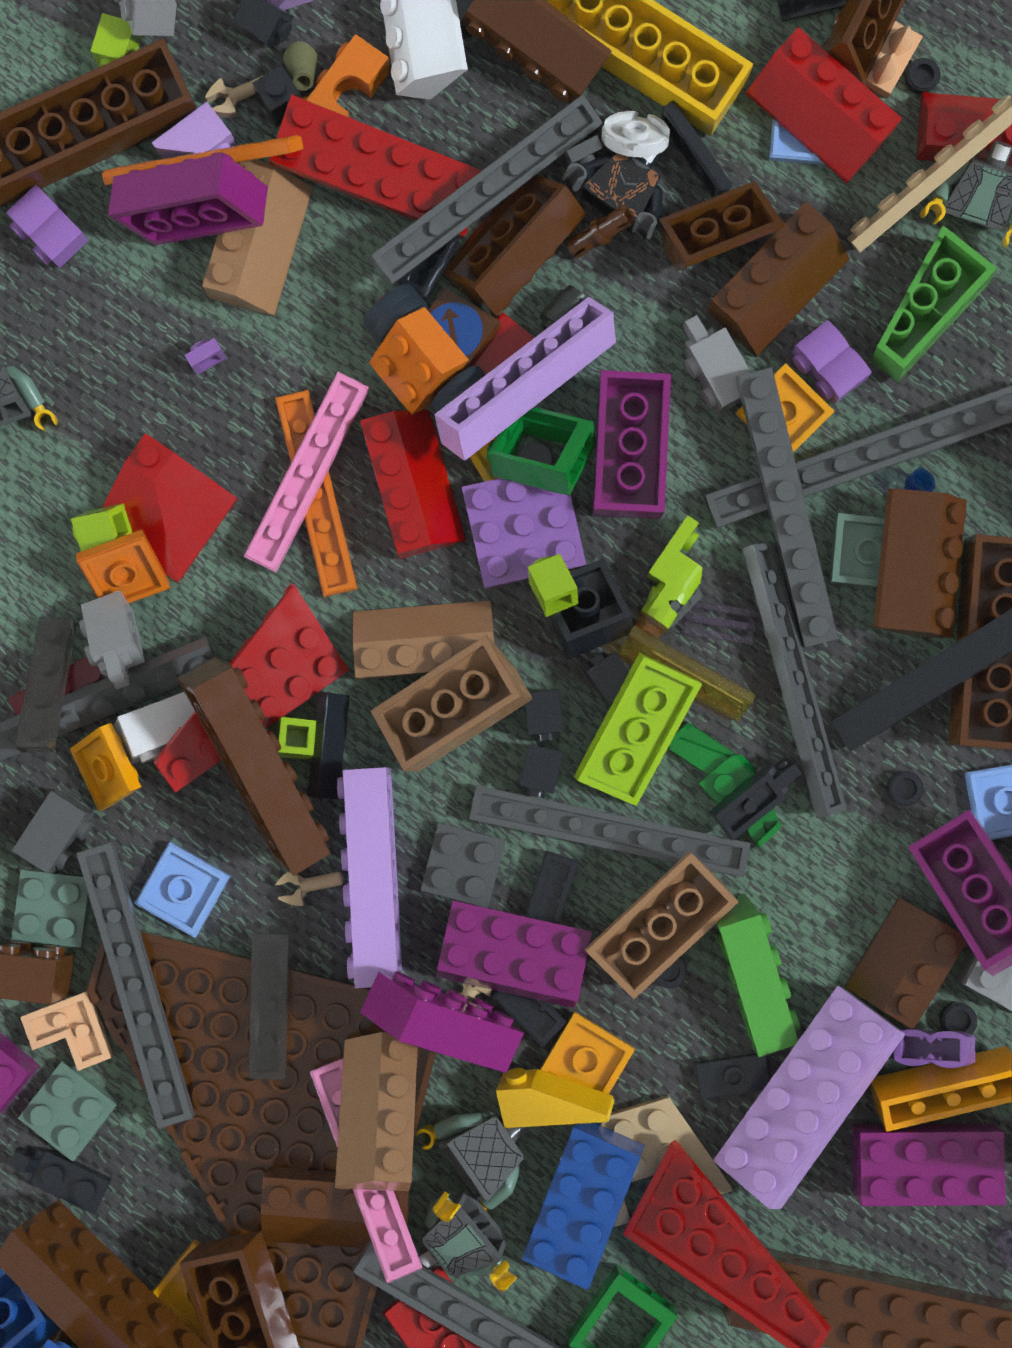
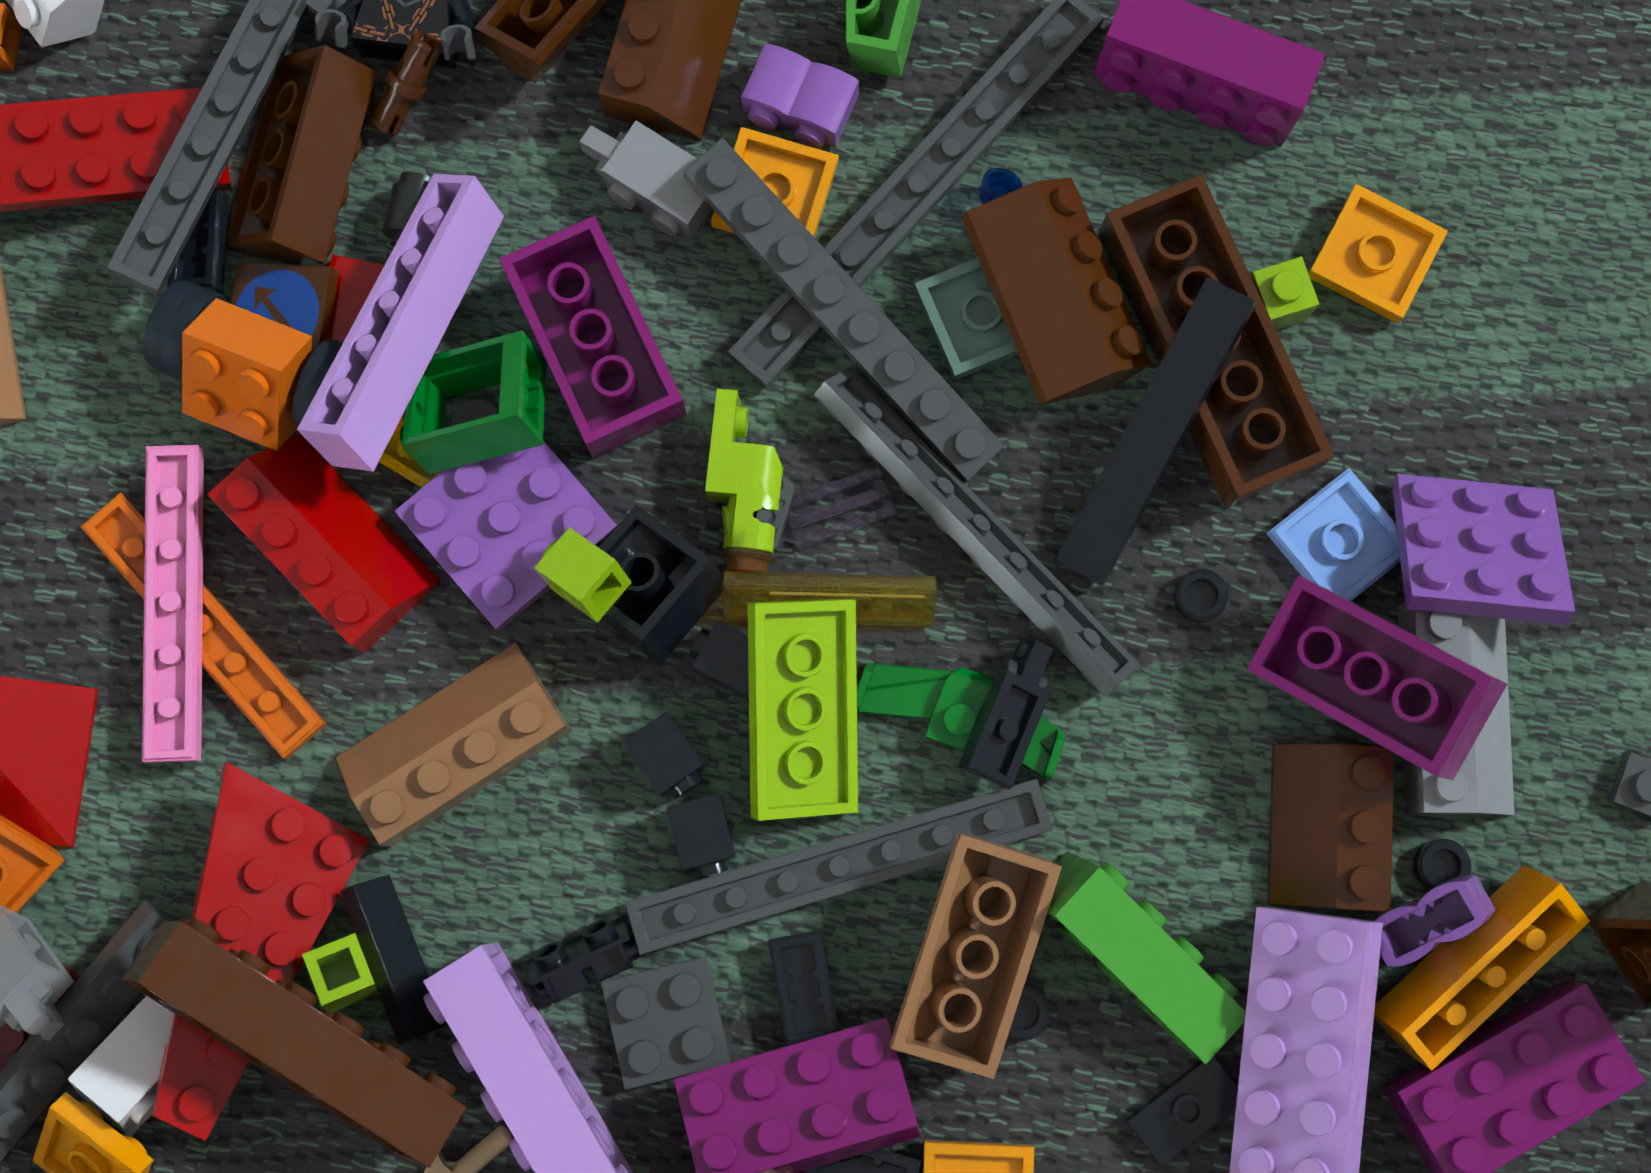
camera: 30 degrees left, 5 degrees down
(418, 801) = (559, 967): none -> black hinge
(450, 705) = (530, 812): medium nougat slope -> none

